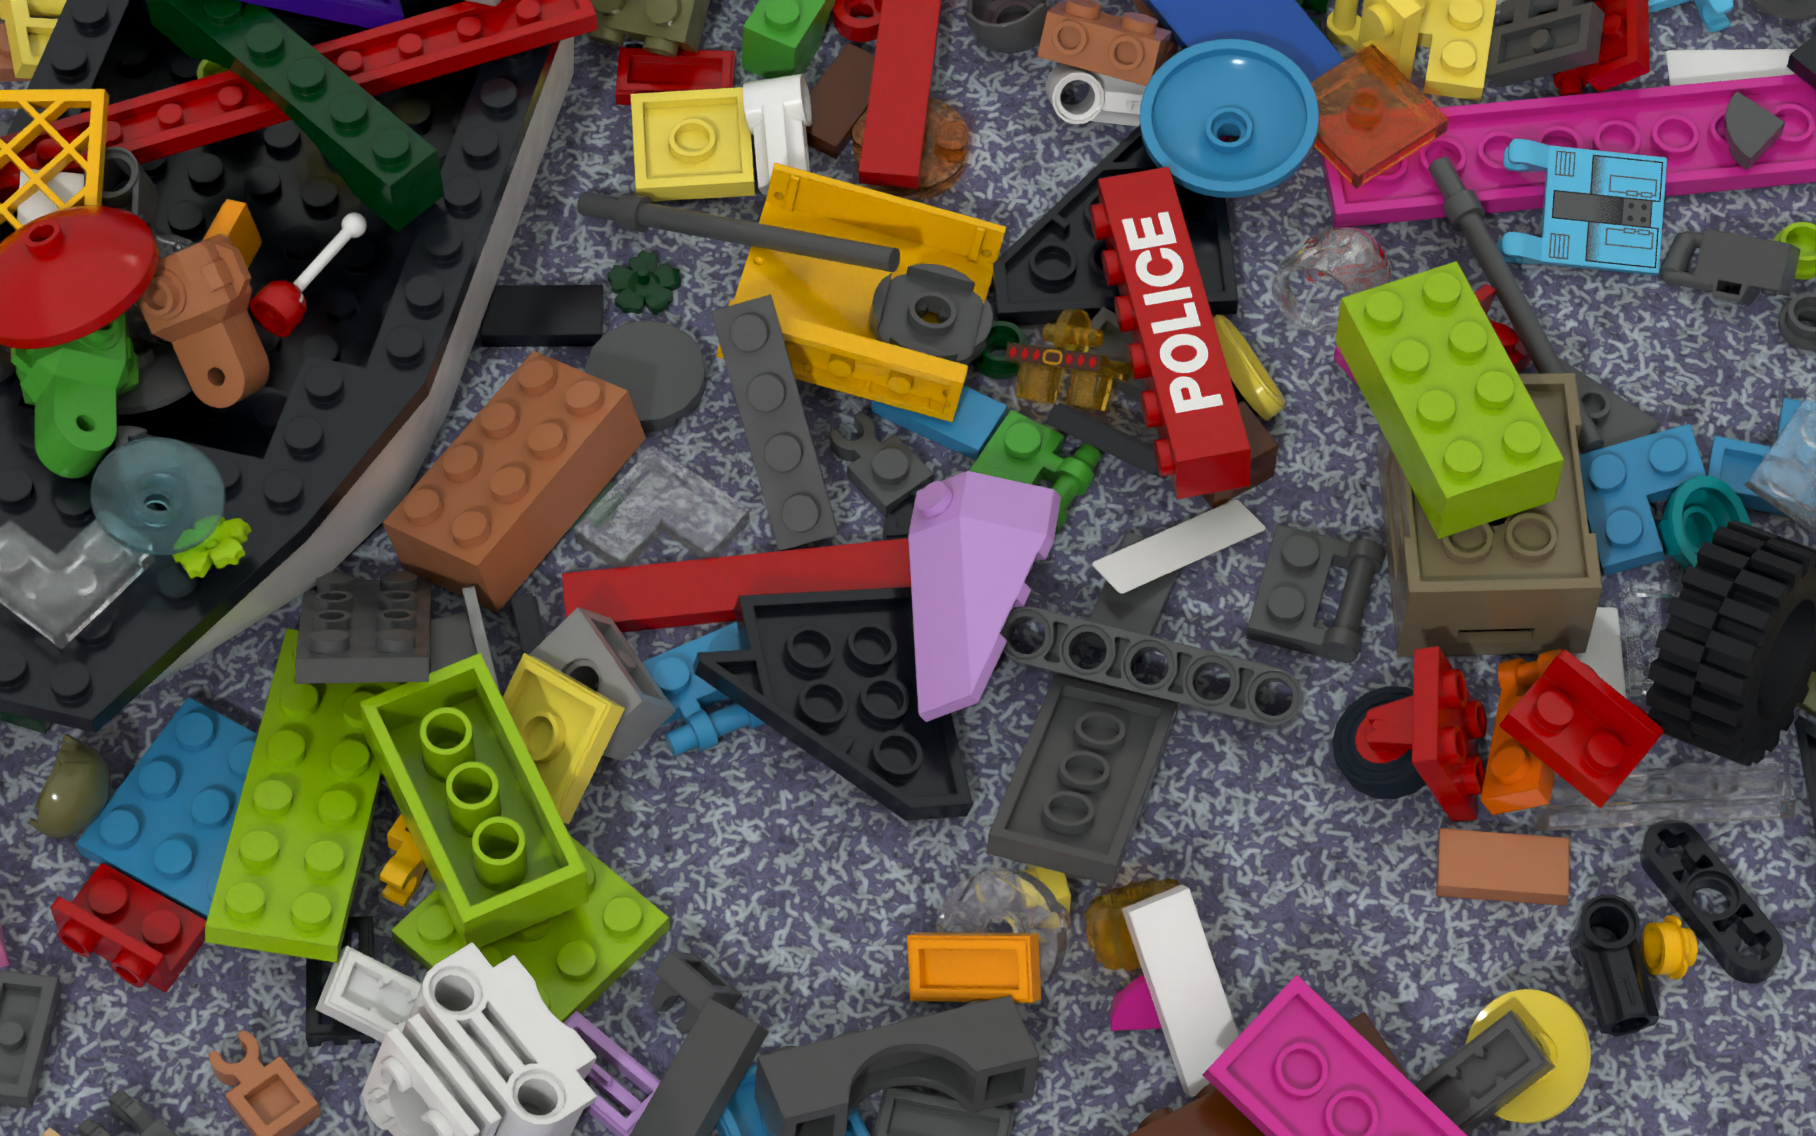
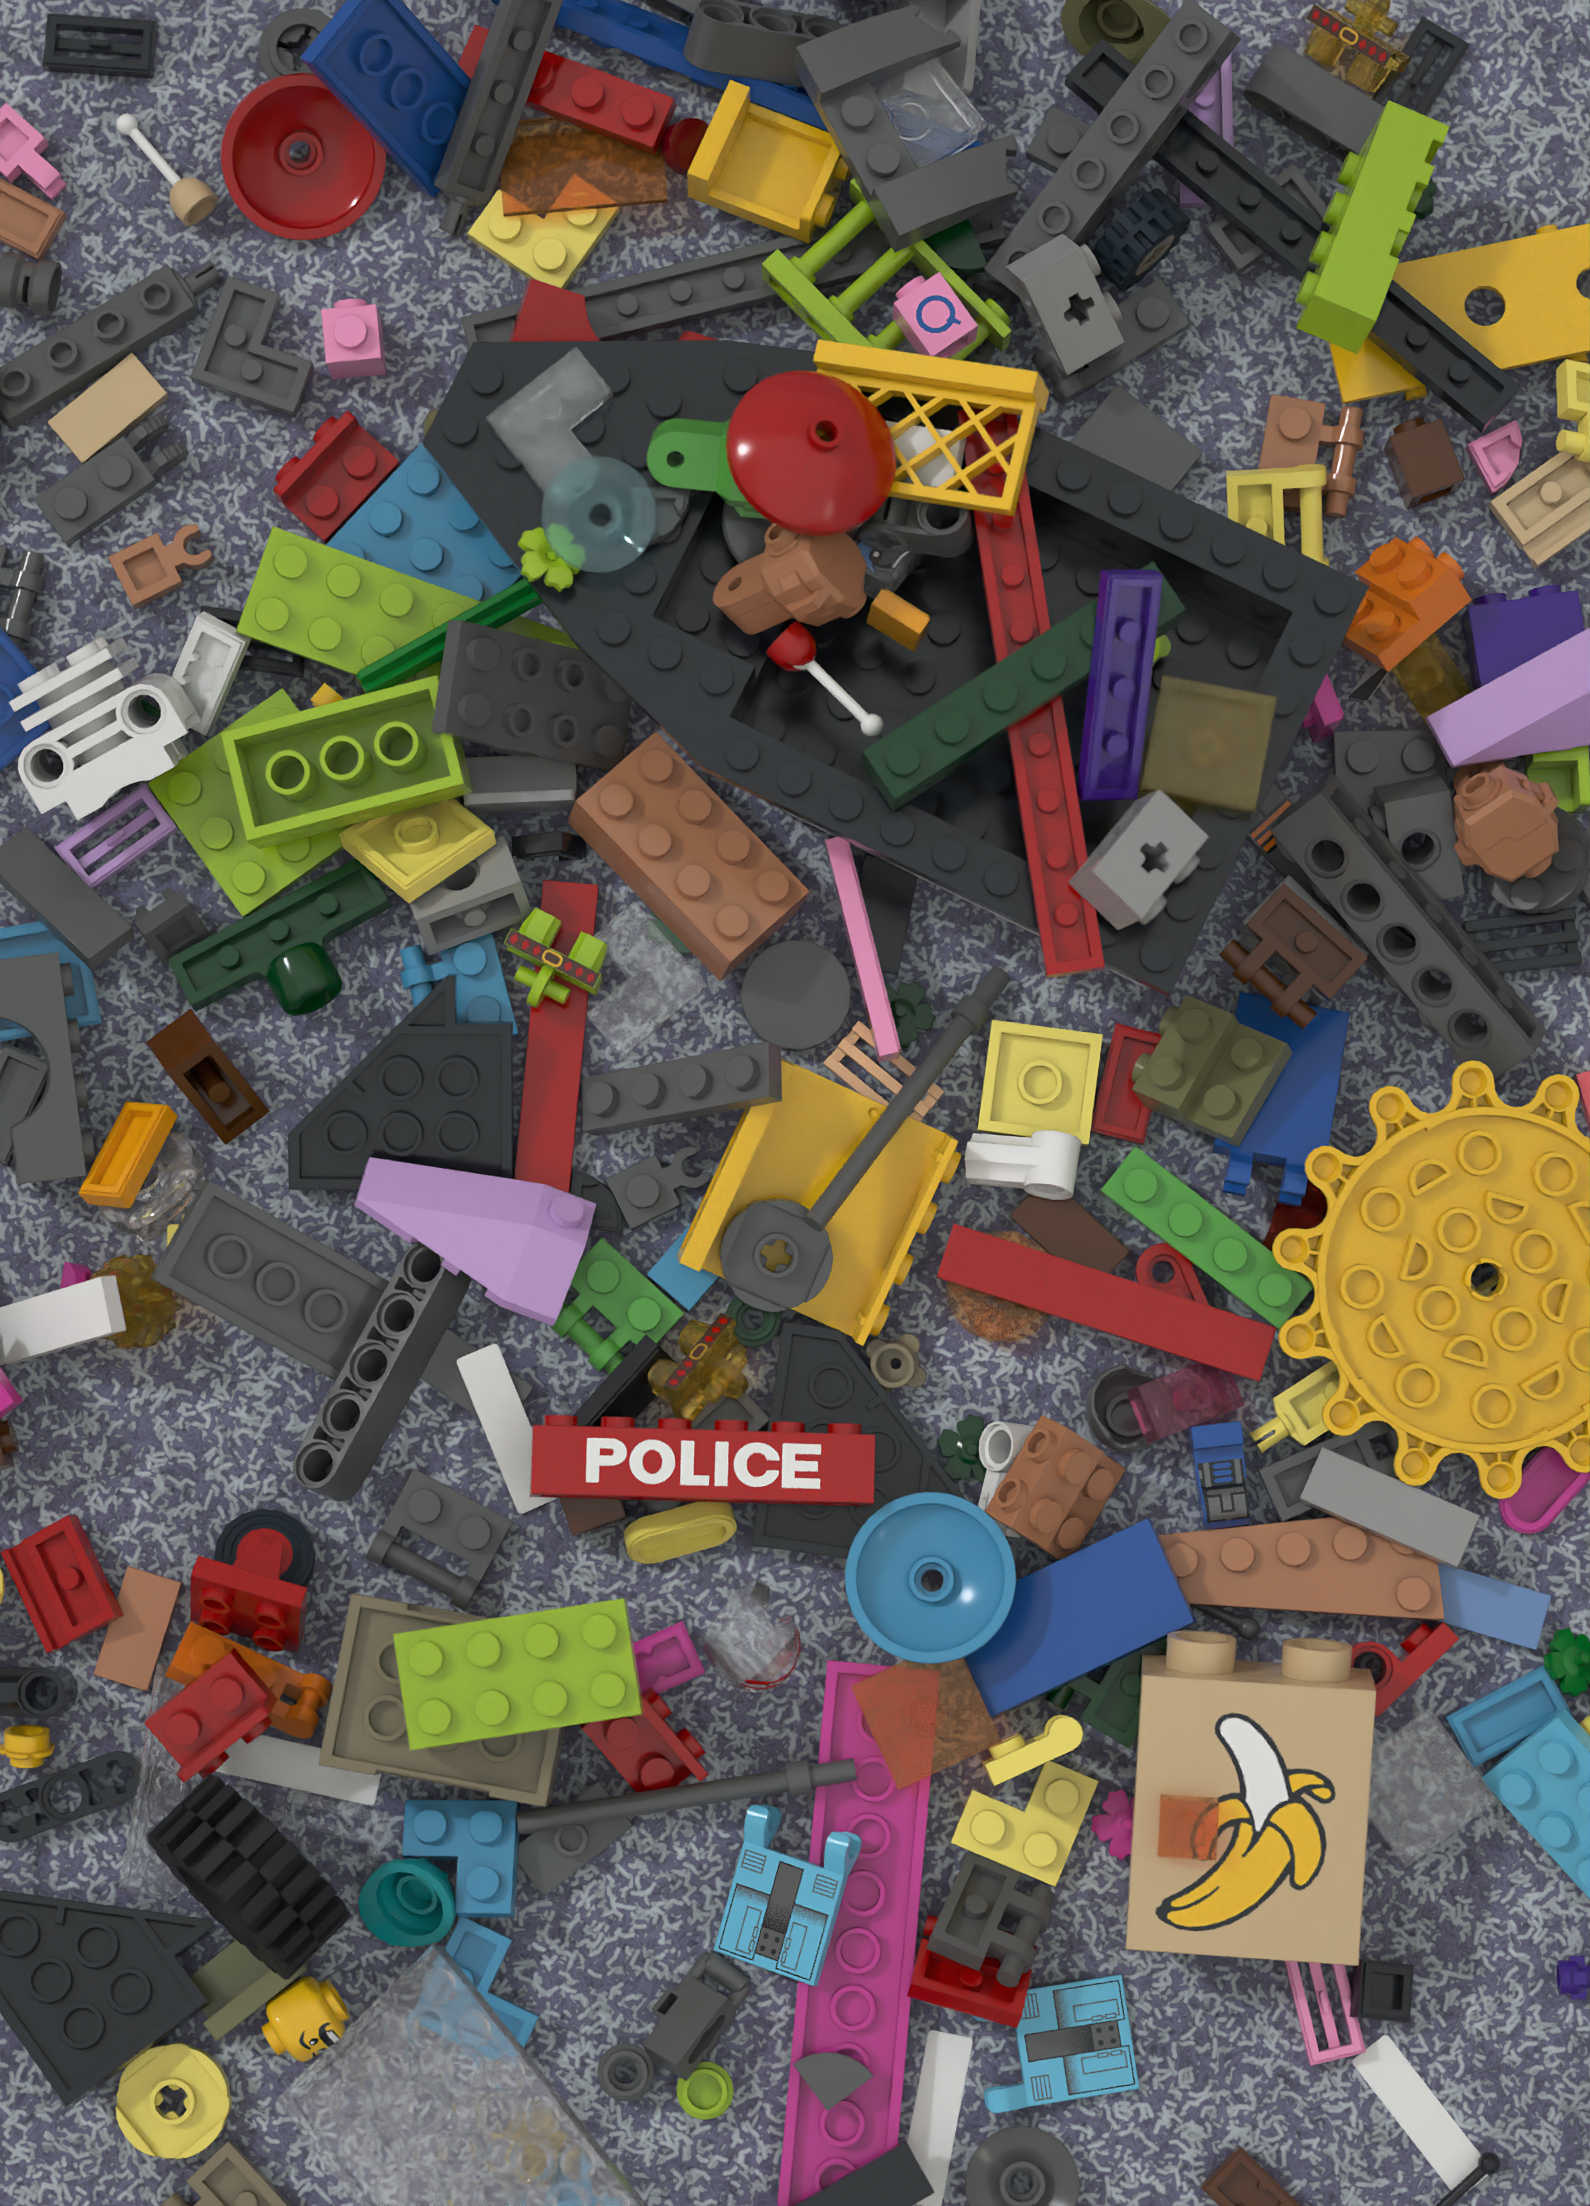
camera: 105 degrees right, 25 degrees up
(303, 726) = (430, 646): none -> green axle
(585, 302) = (863, 949): none -> bright pink tile
(661, 558) = (534, 944): none -> lime hips
(692, 865) = (284, 944): none -> dark green plate
(698, 271) = (847, 1047): none -> light nougat tile
(858, 914) = (207, 1076): none -> reddish brown slope
(1013, 201) = (904, 1349): none -> dark tan plate
(1081, 147) = (963, 1449): none -> dark green plant
(1478, 946) = (62, 1584): none -> red plate

